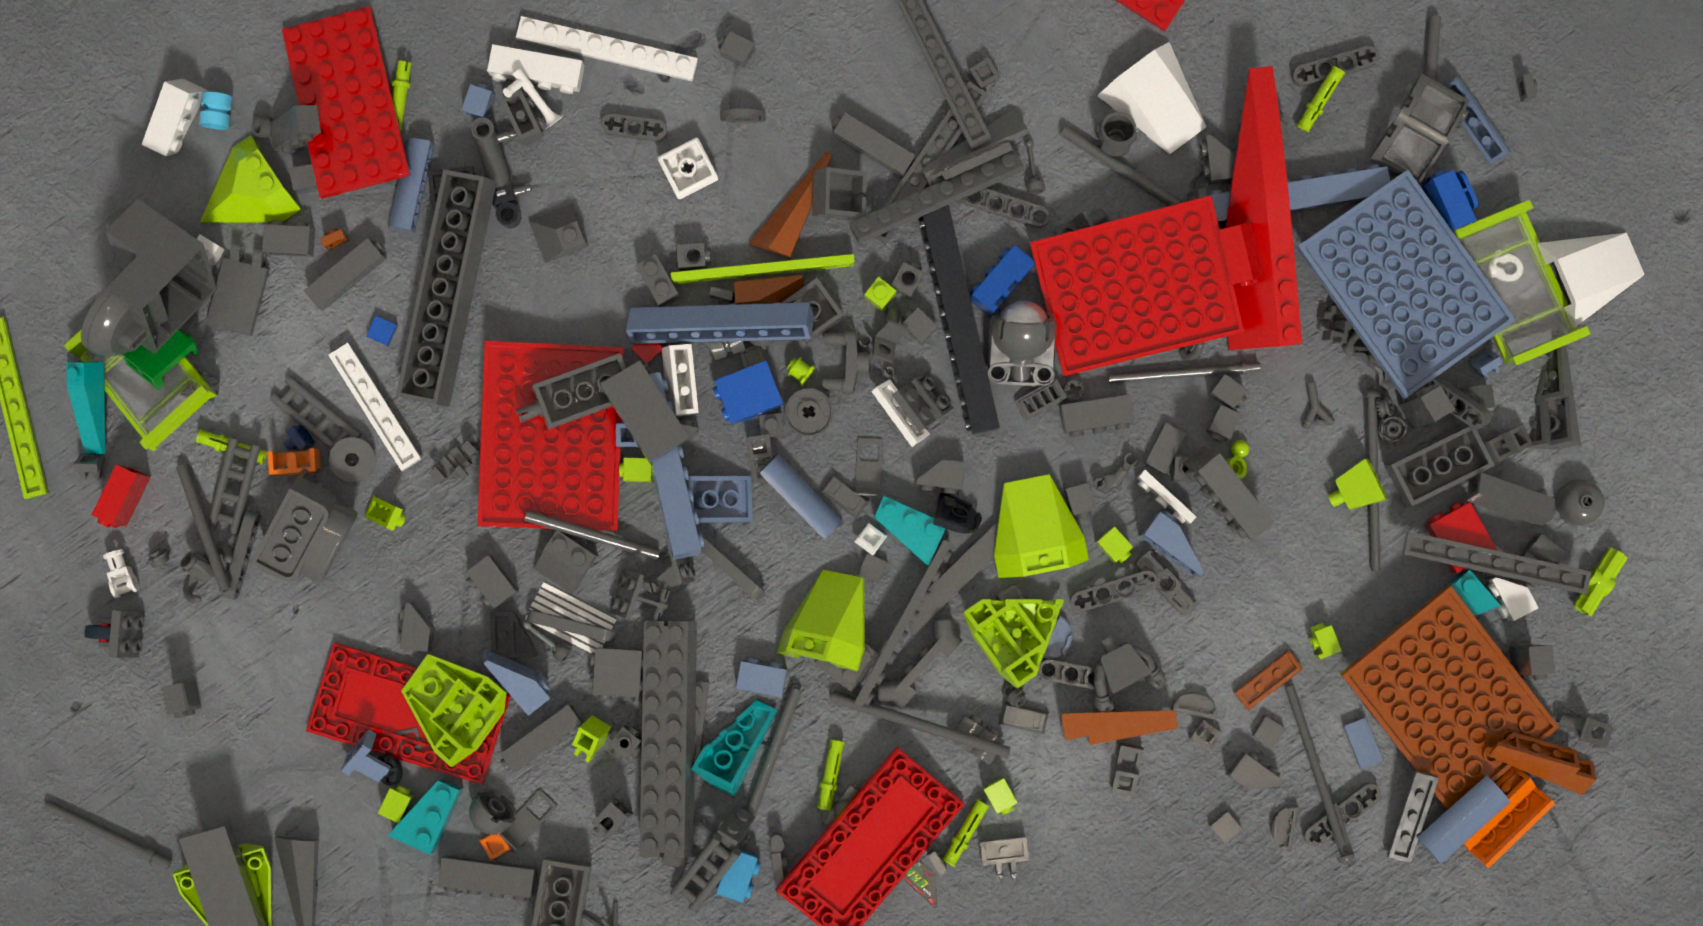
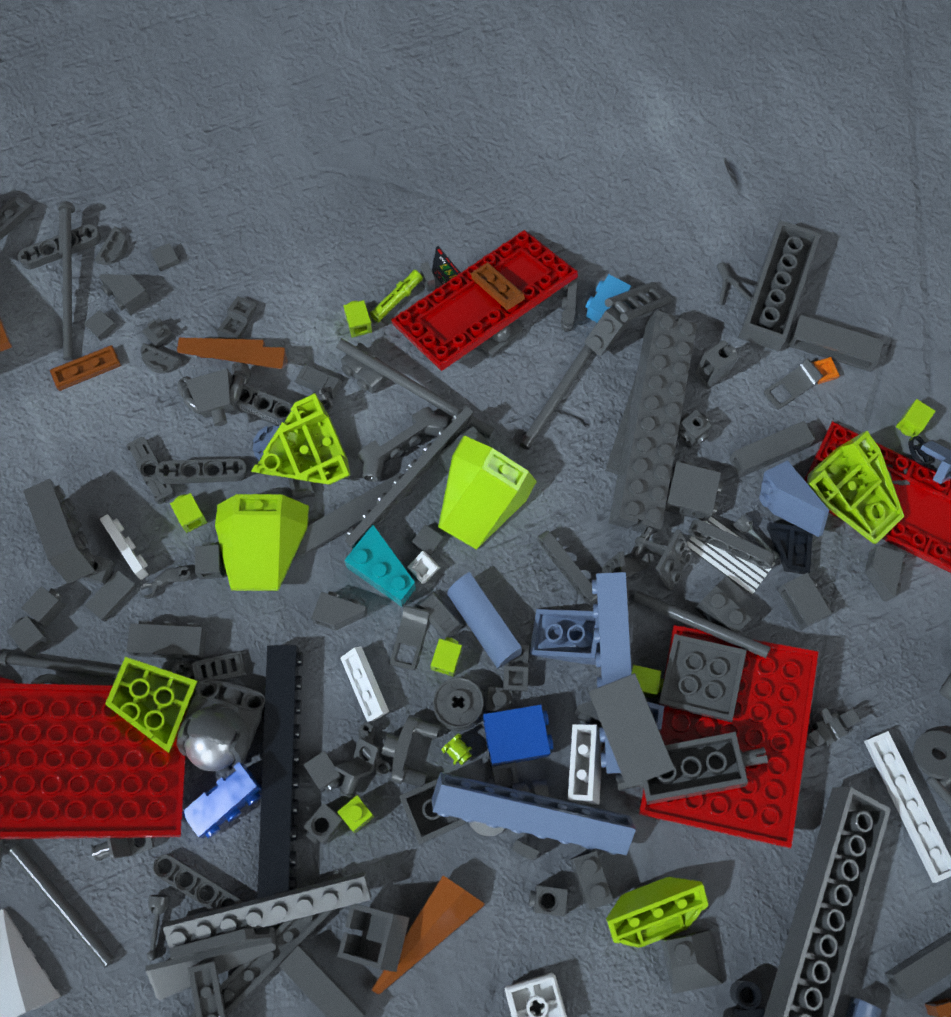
camera: 175 degrees left, 15 degrees down
(381, 330) = (896, 889): blue tile -> none
(385, 514) = (909, 688): lime tile -> none
(429, 817) = (886, 400): teal wedge -> none
(490, 813) = (826, 393): dark grey cylinder -> none
(583, 480) = (702, 678): none -> dark grey plate
(591, 737) = (725, 439): lime brick -> none
(597, 266) = (656, 911): none -> lime wedge
(647, 351) = (615, 804): red tile -> none
(731, 754) = (596, 400): teal wedge -> none
(761, 678) = (555, 460): sand blue brick -> none
(762, 269) = (475, 869): lime tile -> none
(767, 290) = (476, 842): dark orange slope -> none
(829, 455) = (446, 656): none -> lime brick
(831, 772) = (511, 358): lime pin -> none
(858, 857) = (497, 286): none -> dark orange tile
(922, 401) = (339, 689): dark grey brick -> none
(956, 515) = (333, 569): black tile -> none
(1004, 851) = (366, 274): hinge -> none
(1088, 350) = (151, 700): none -> lime wedge
(1117, 134) = (49, 942): dark grey helmet -> none
(1170, 540) = (134, 507): sand blue slope -> none
(1239, 449) = (39, 578): lime plate -> none
(1324, 640) = (20, 387): lime brick -> none
(1362, 743) = (19, 299): sand blue tile -> none

